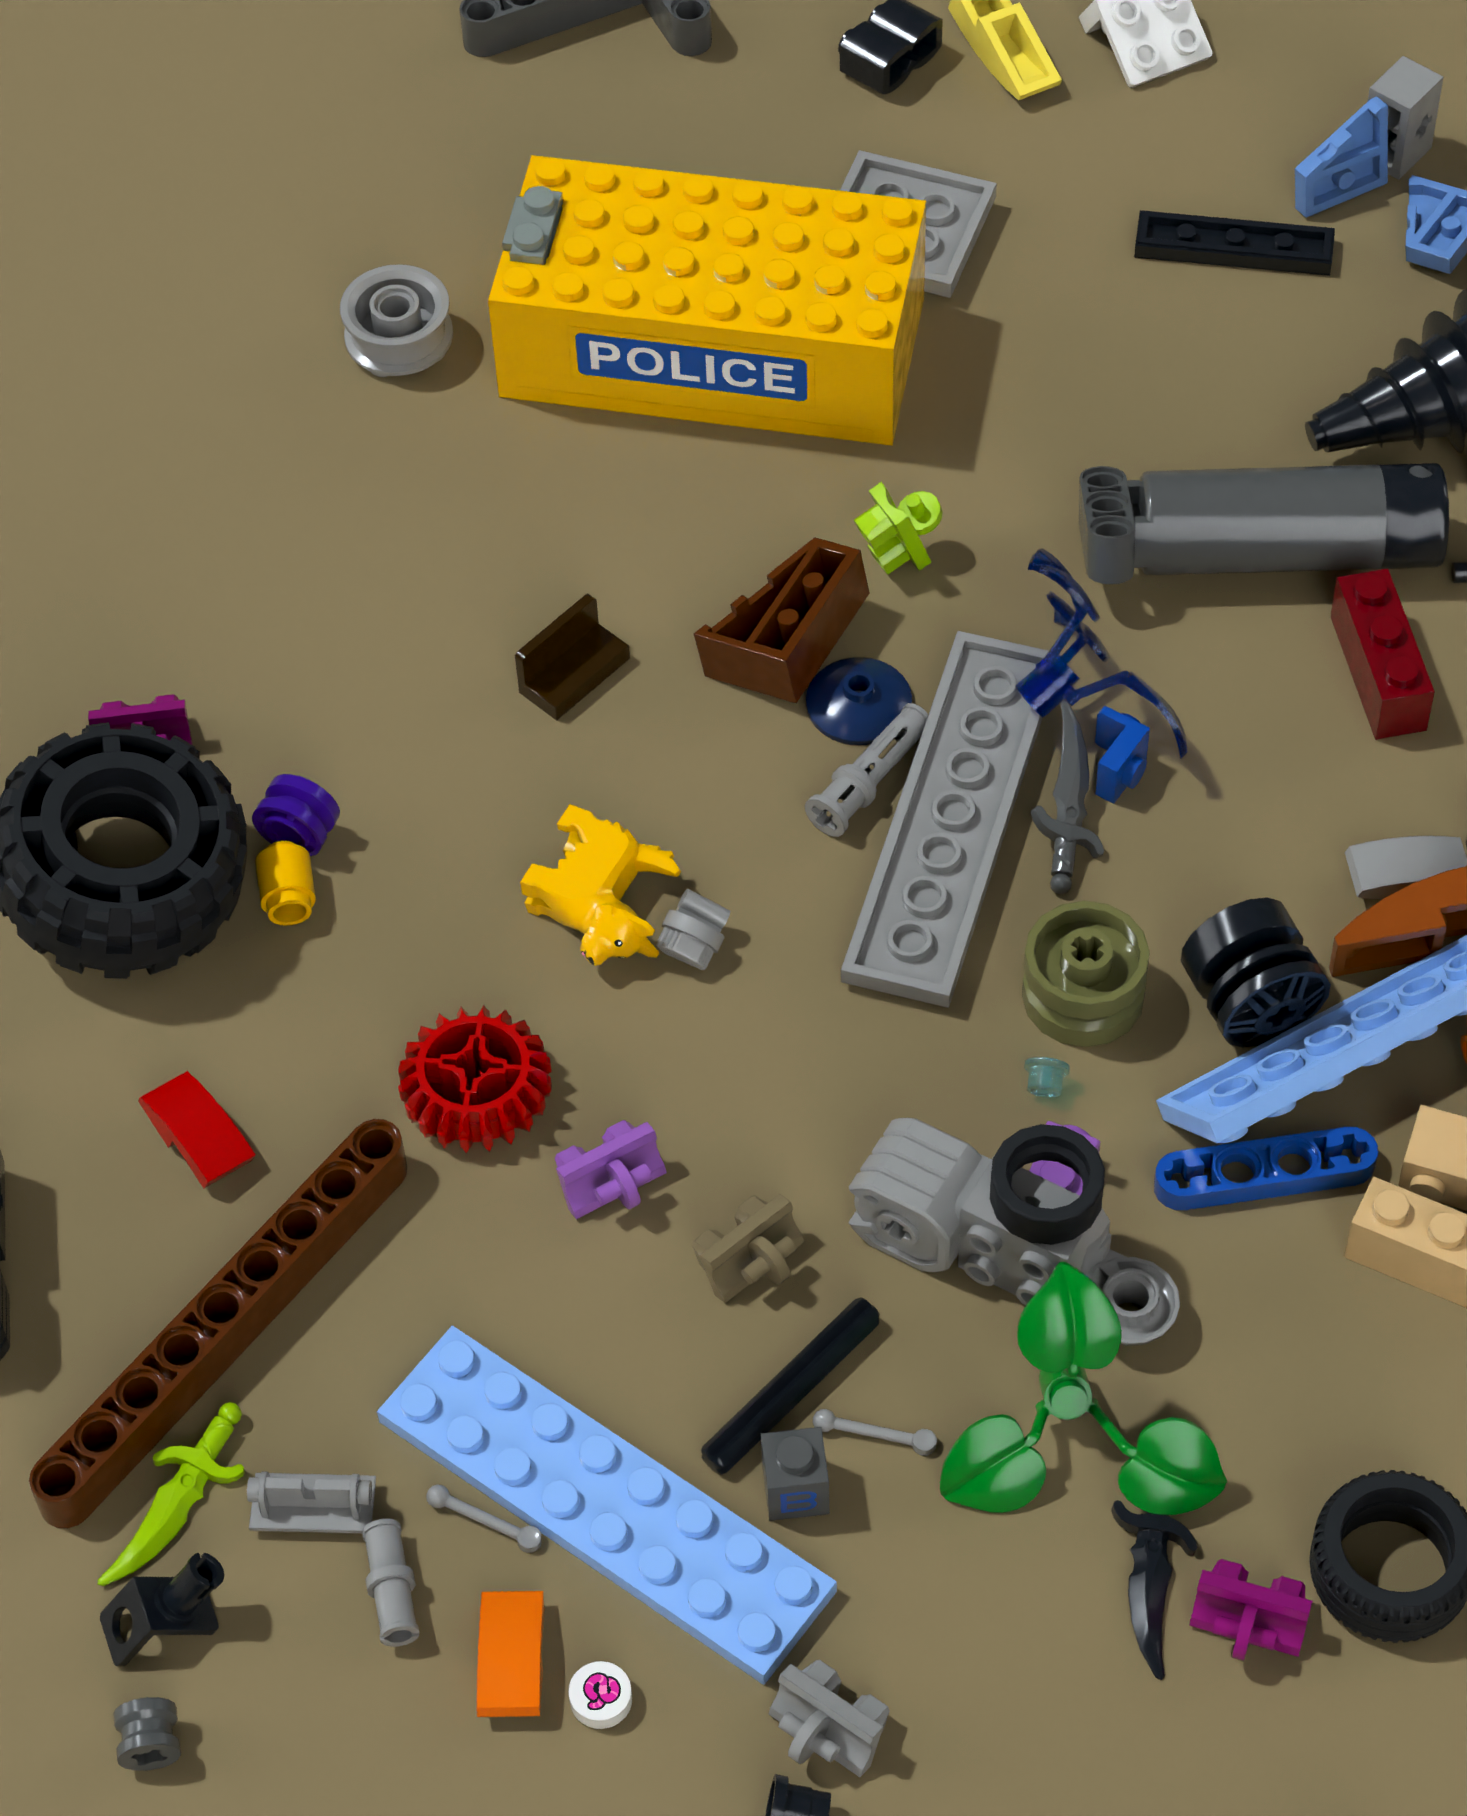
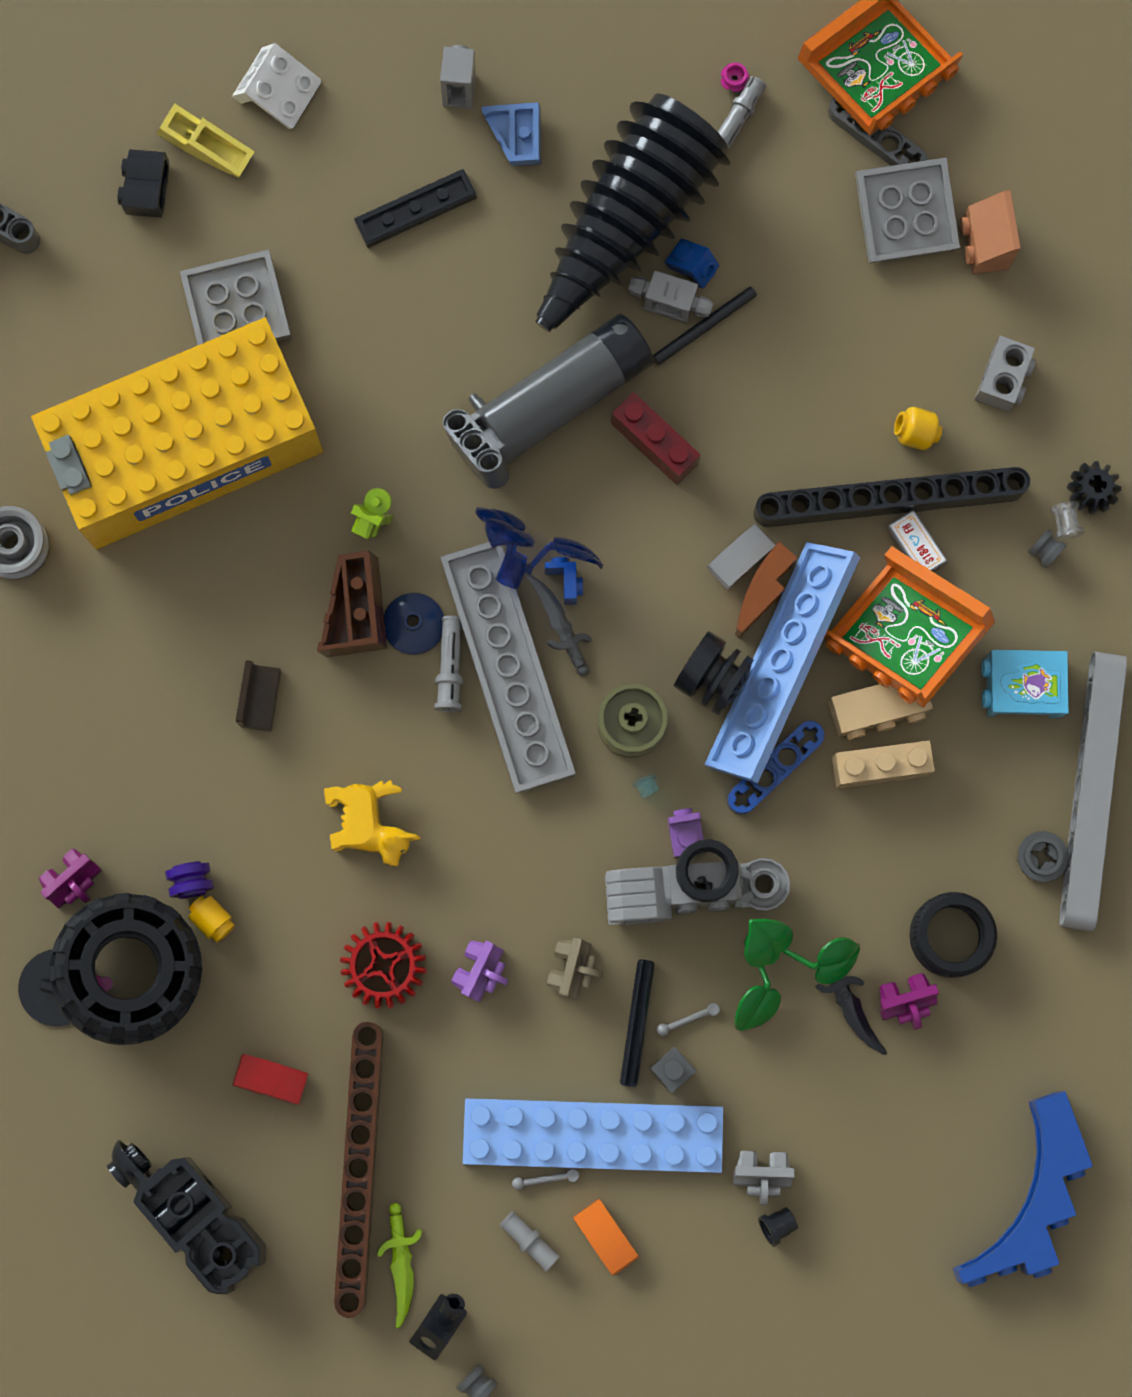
camera: 40 degrees left, 25 degrees up
(310, 1502) = (465, 1226): light grey hinge -> none
(600, 1695) = (656, 1228): white tile -> none
(693, 930) = (429, 815): light grey piece -> none
(1346, 162) = (446, 125): medium blue wing -> none

